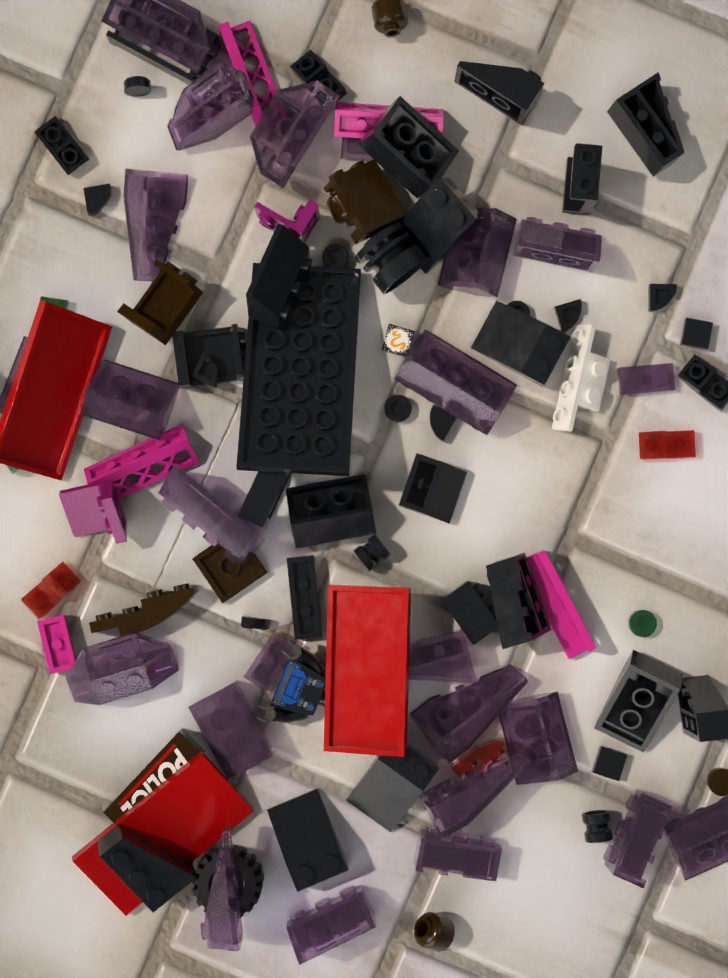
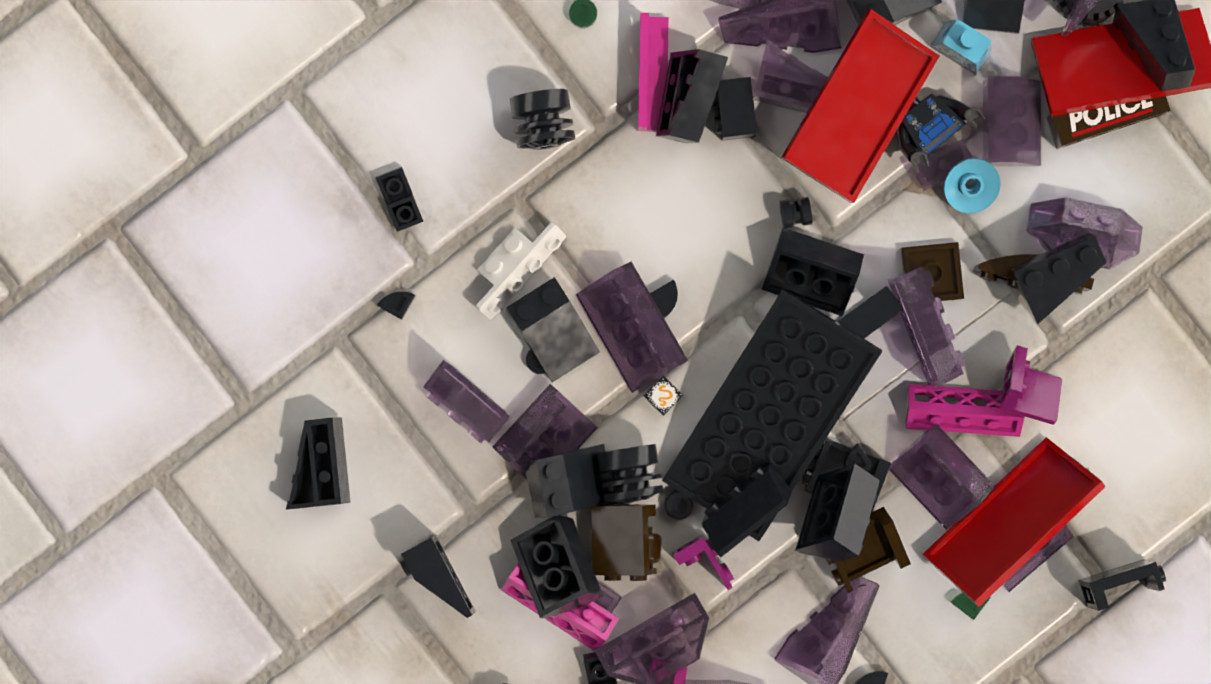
camera: 145 degrees left, 0 degrees up
(50, 591) = (1110, 340): clear red slope -> none
(57, 643) = (1130, 288): dark pink plate -> none
(123, 618) = (1057, 273): none -> black wedge
(199, 315) = (838, 514): none -> black slope
(229, 648) = (978, 195): none -> medium azure dish
(254, 622) = (941, 210): black tile -> none
(304, 597) = (880, 206): black plate -> none
(308, 771) = (962, 45): none -> medium azure torso
(398, 408) = (698, 332): black tile -> none
(432, 488) = (708, 240): black slope -> none
(568, 314) = (492, 333): black tile -> none
(582, 179) = (413, 448): black panel -> none
(628, 512) = (542, 119): none -> black wheel
(646, 379) = (454, 233): clear purple plate -> none
(667, 444) = (468, 162): clear red slope -> none
(696, 333) = (384, 250): black tile -> none

